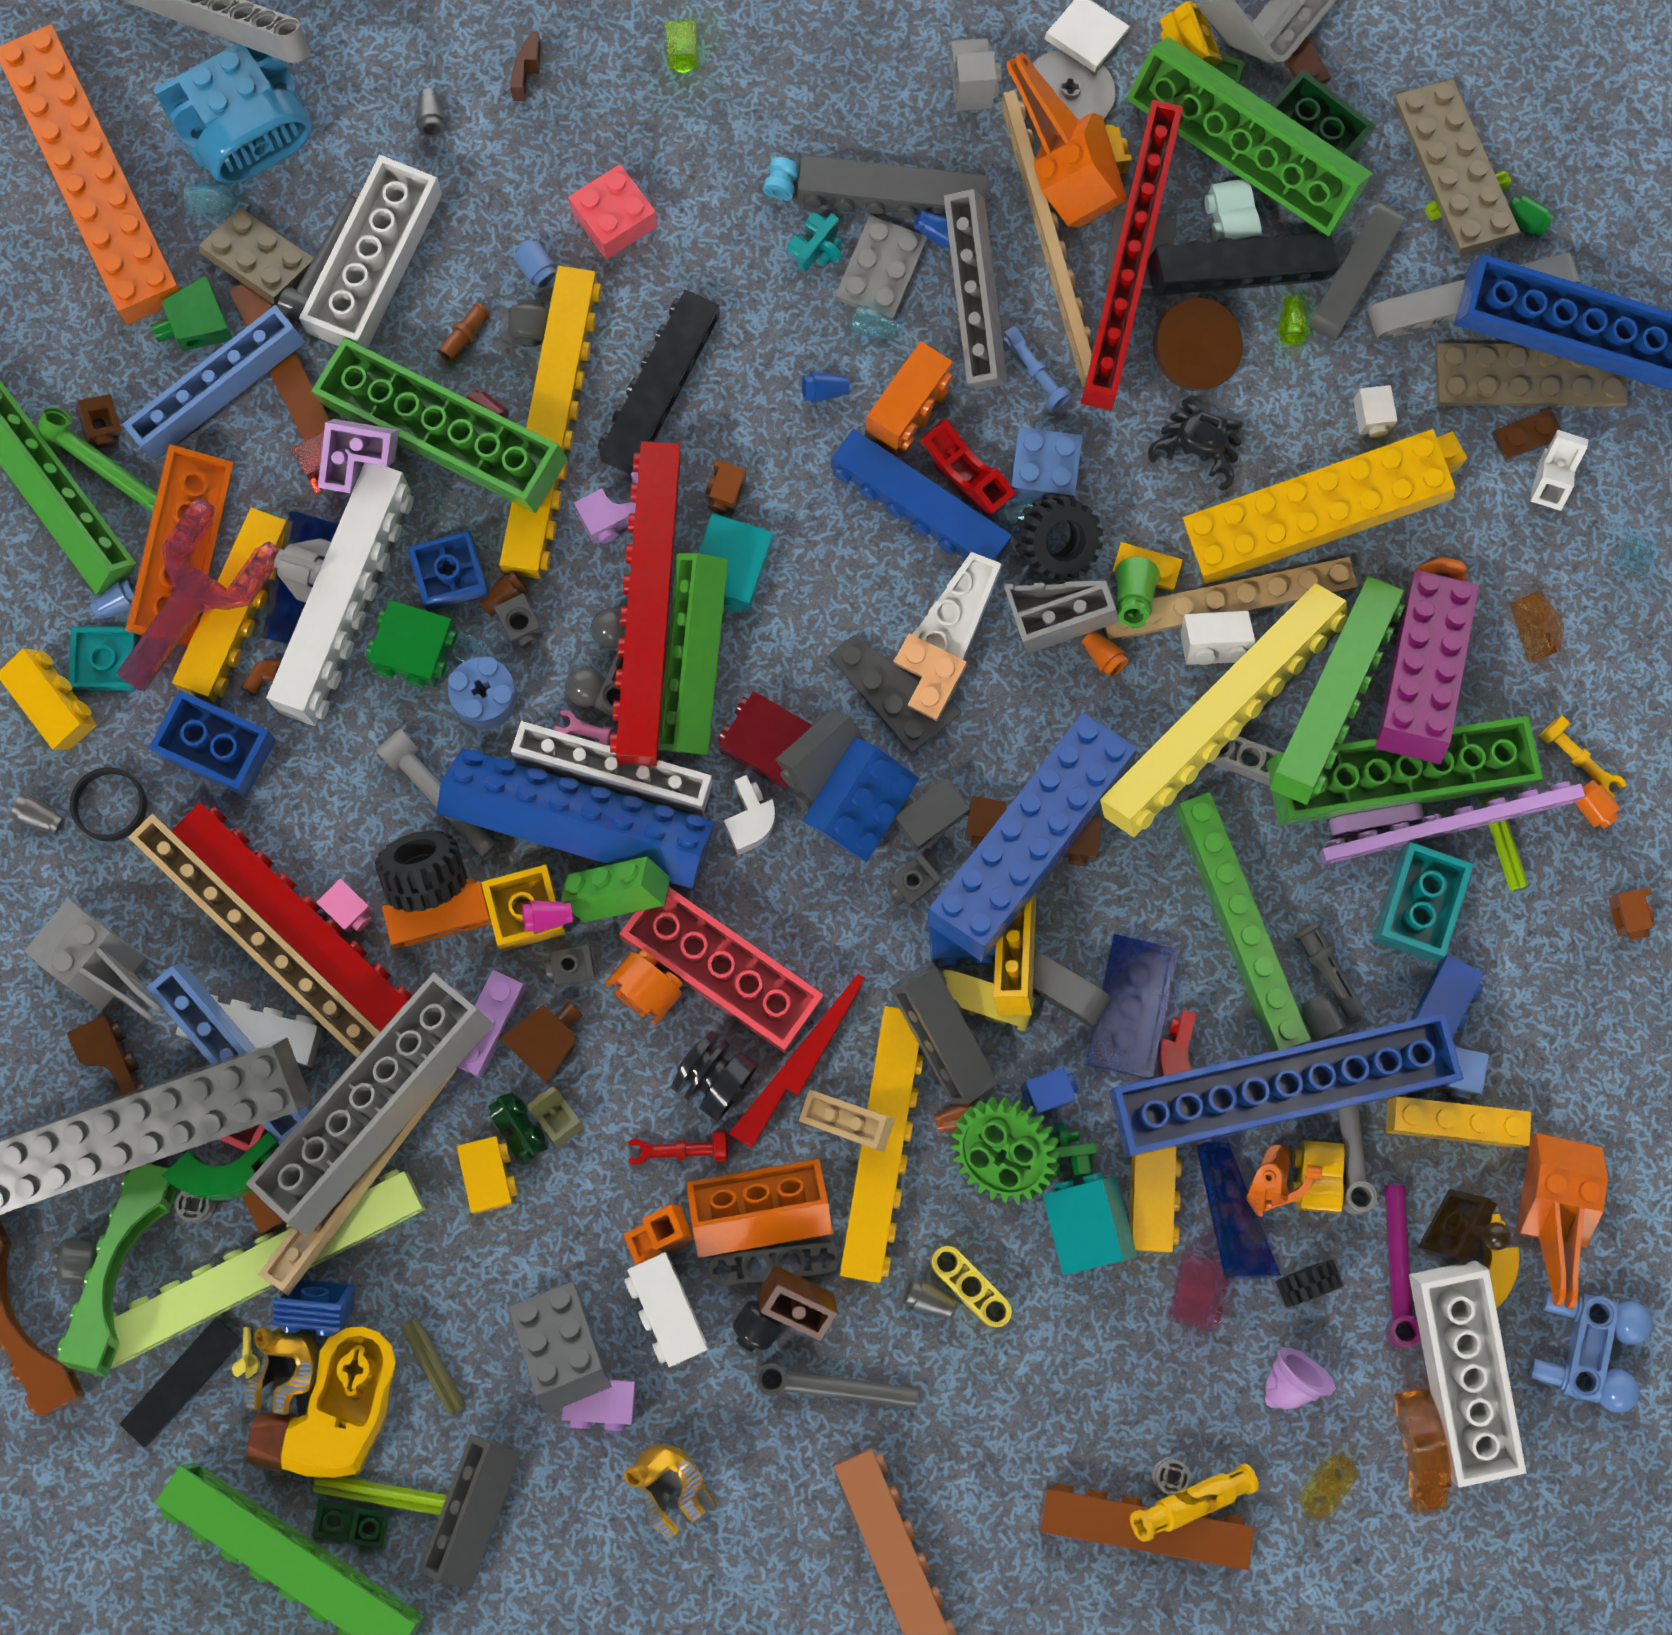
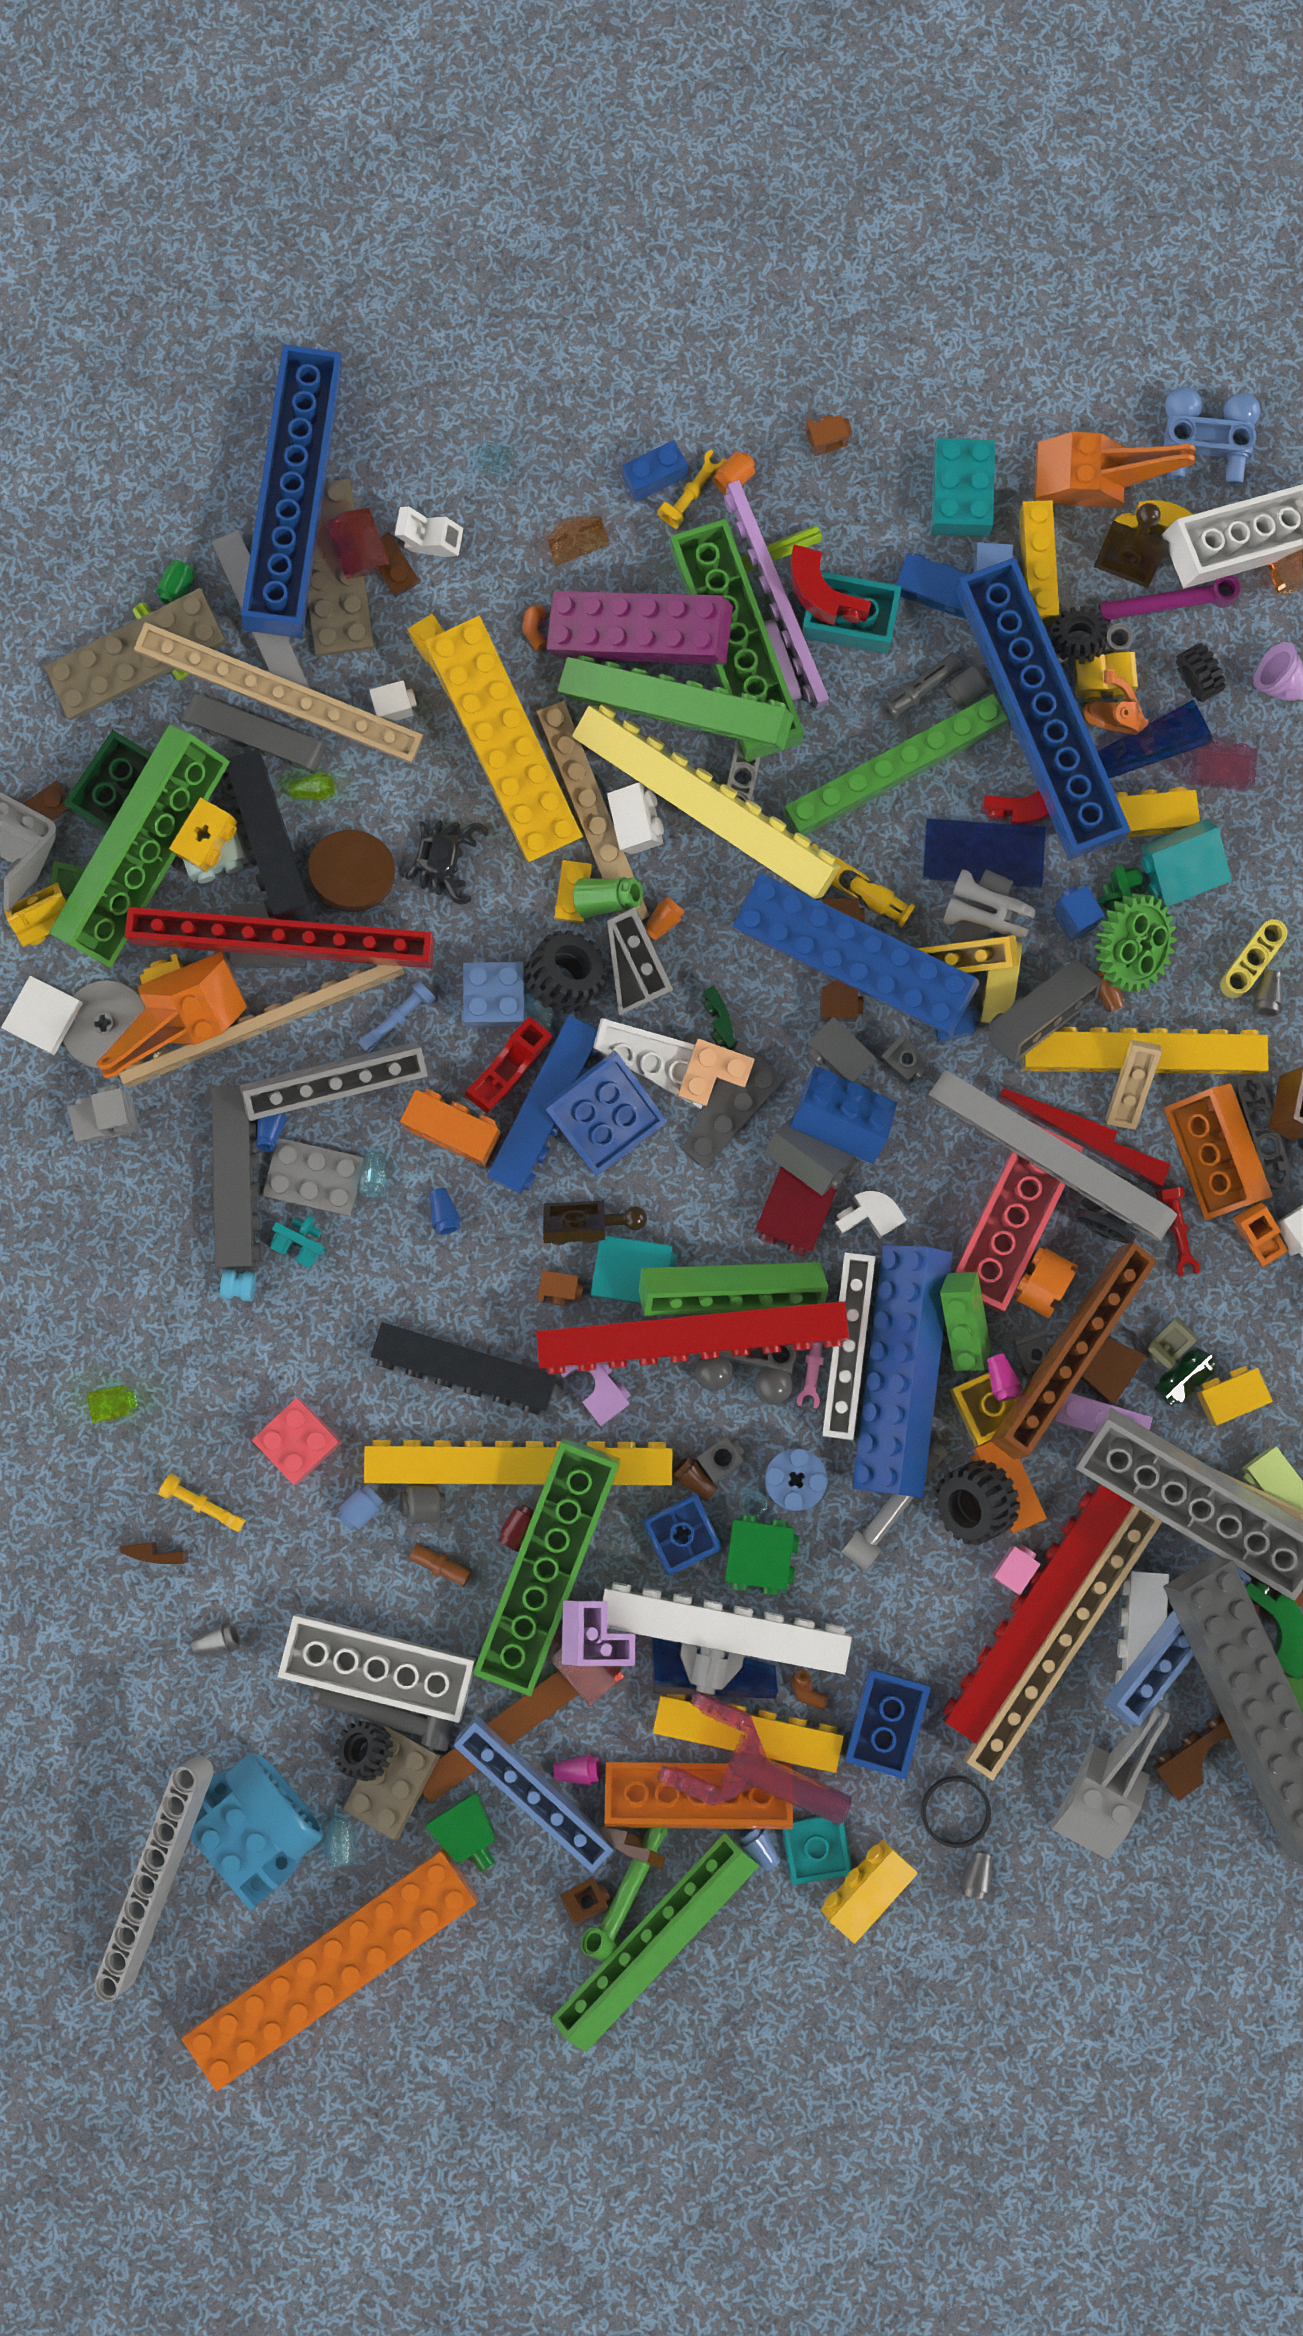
camera: 90 degrees left, 5 degrees up
(140, 467) = (631, 1846): none -> reddish brown slope
(231, 436) = (578, 1770): none -> dark pink cone
(292, 230) = (350, 1749): none -> black tyre
(563, 998) = (1073, 1351): none -> dark orange brick
(590, 91) = (200, 1503): none -> yellow piece
(776, 1008) = (1052, 1156): none -> light grey beam
(790, 518) = (585, 1221): none -> dark brown plate
(901, 556) = (605, 1113): none -> blue plate
(977, 695) = (722, 1026): none -> dark green slope
(1065, 1008) = (998, 921): none -> light grey piece
(1100, 878) = (876, 896): none -> yellow piece
(1251, 197) = (203, 820): none -> yellow brick
(1383, 1144) = (1079, 621): none -> black tyre
(1395, 293) = (278, 693): none -> tan plate
(1464, 849) = (817, 595): none -> red arch
(1553, 394) = (357, 543): none -> clear red brick
(1555, 1051) = (963, 487): none -> teal brick
(1606, 717) = (654, 471): none -> blue brick

